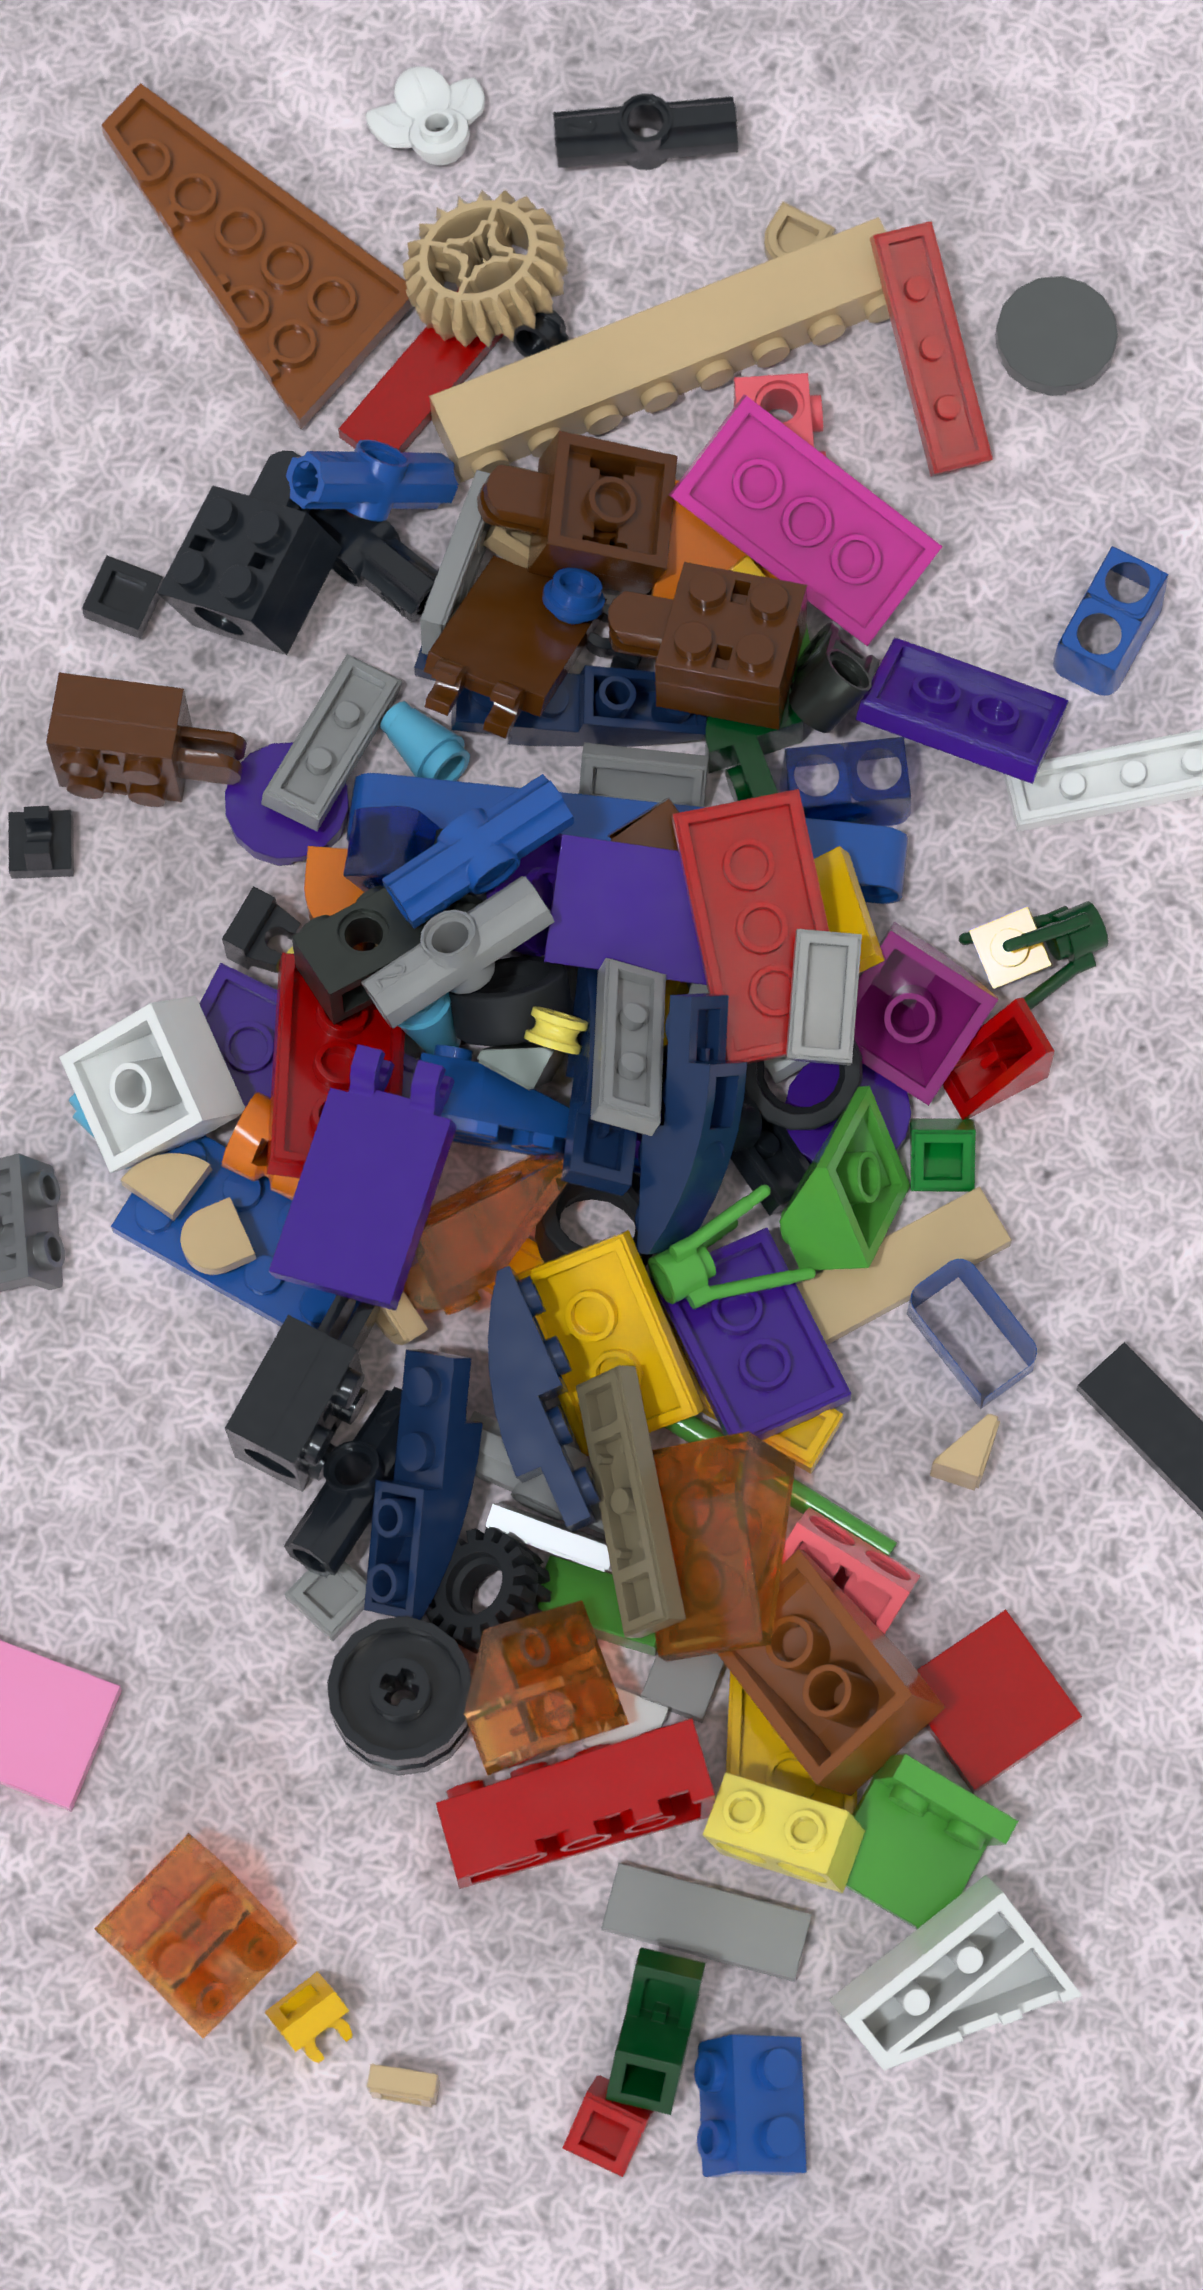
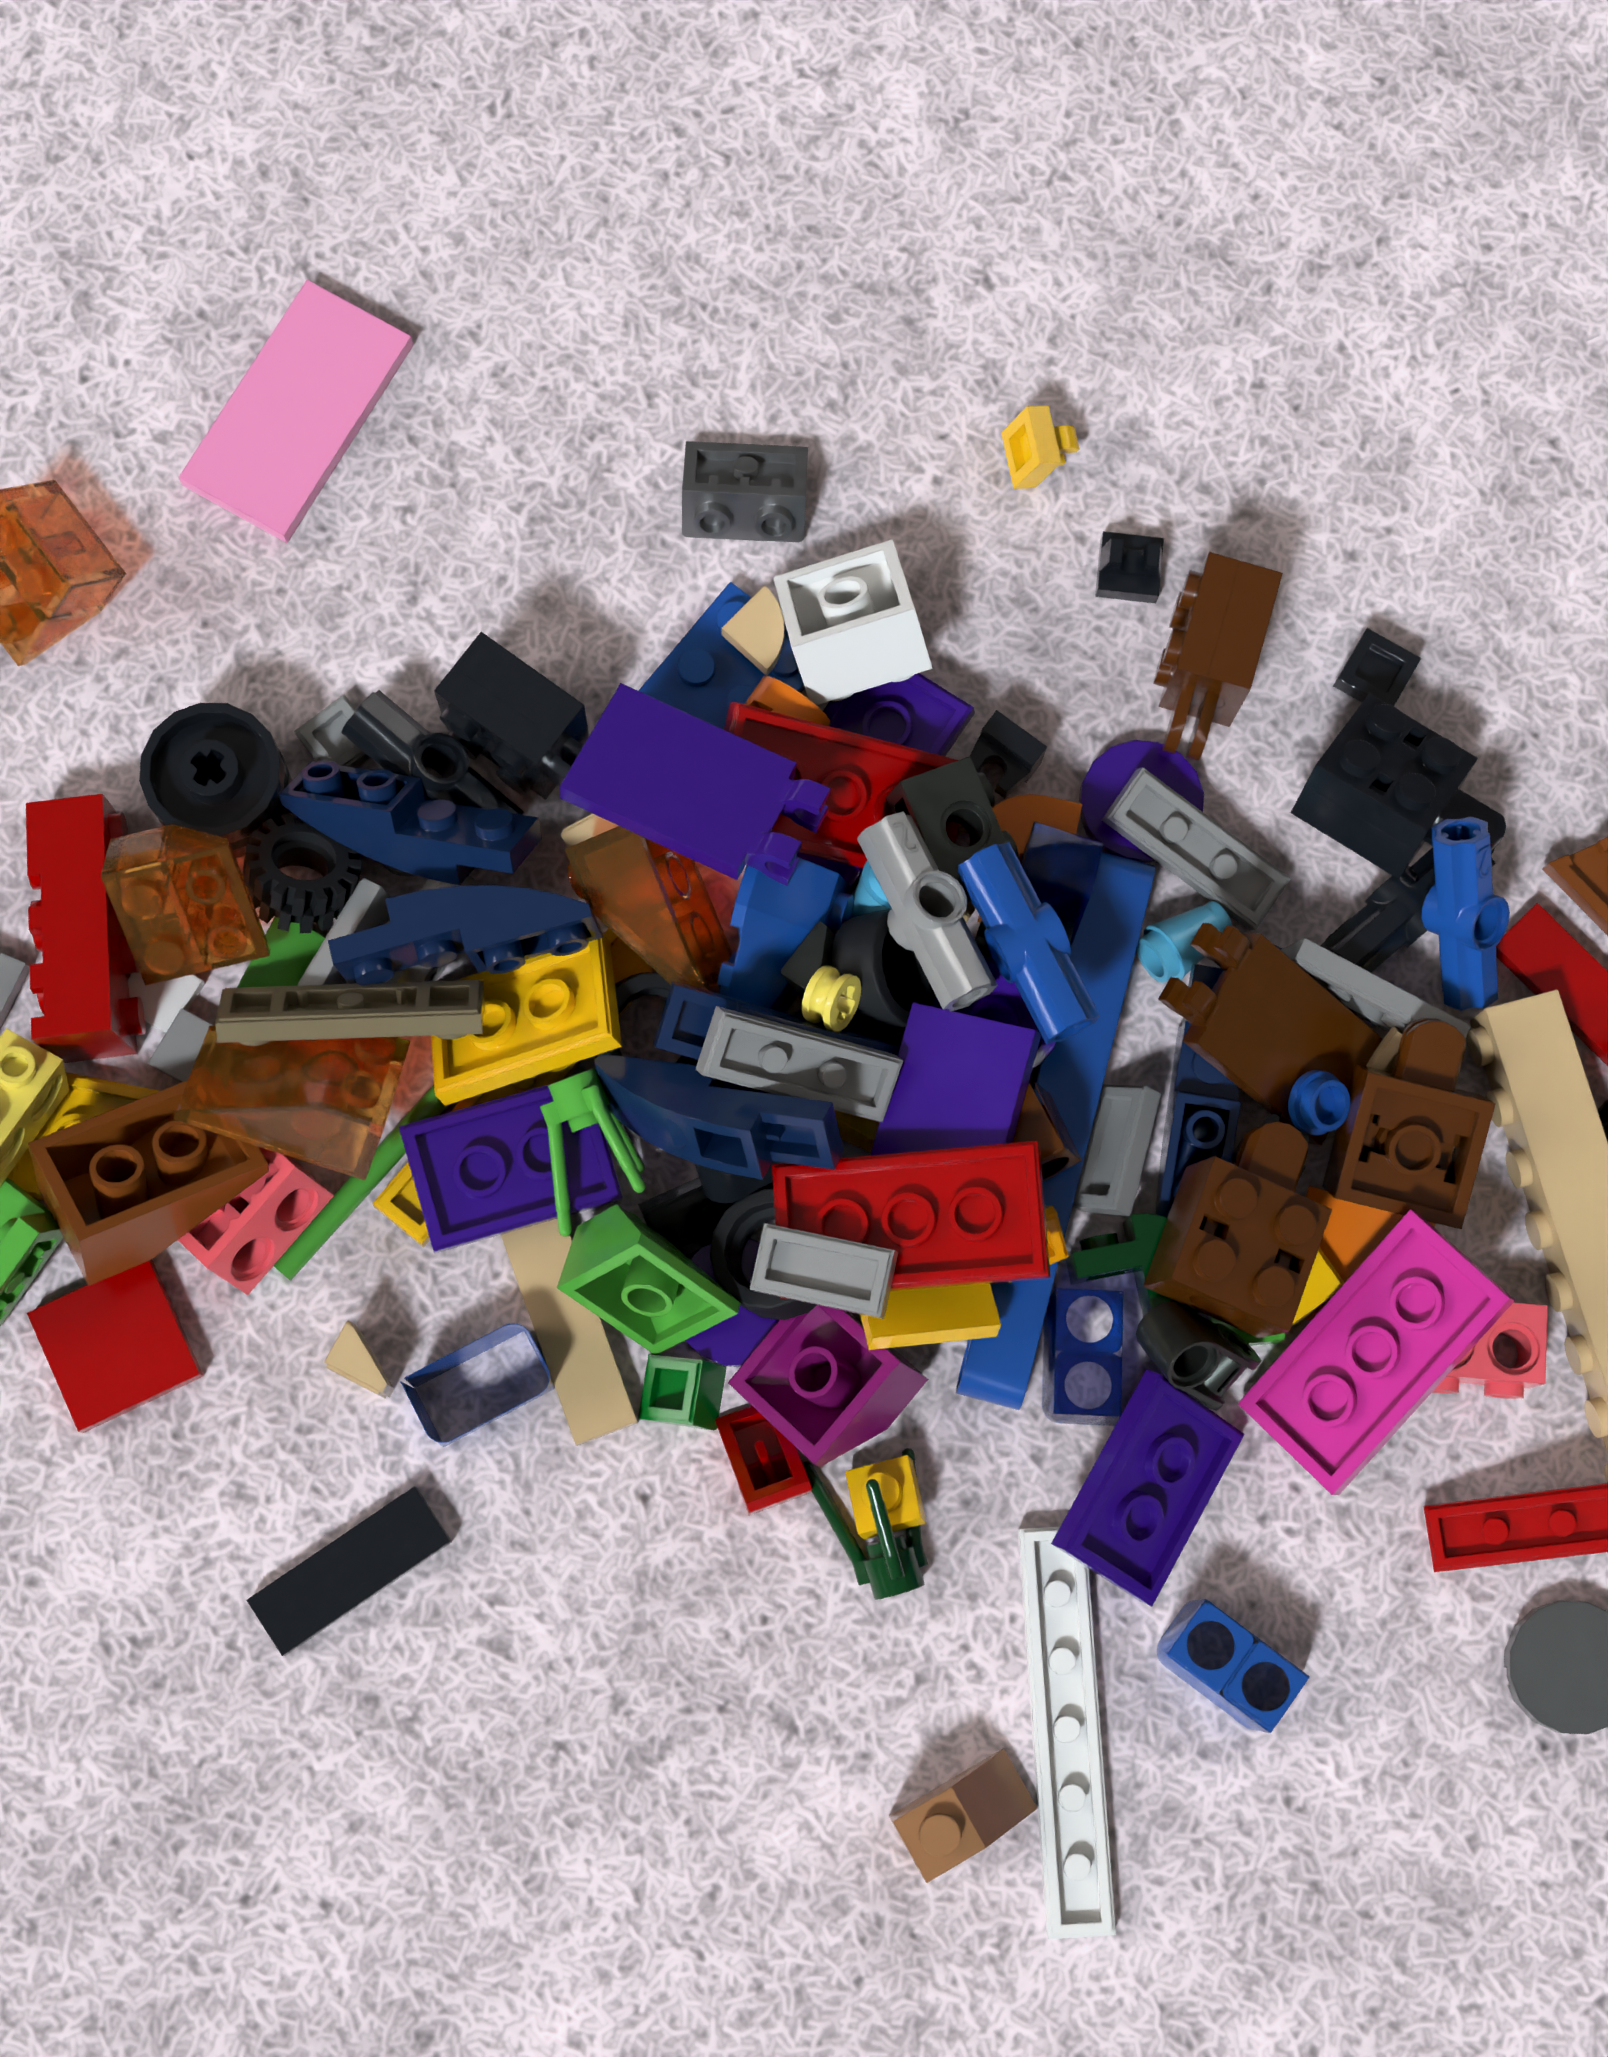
camera: 90 degrees right, 5 degrees up
(216, 1239) = (693, 668): tan tile -> none

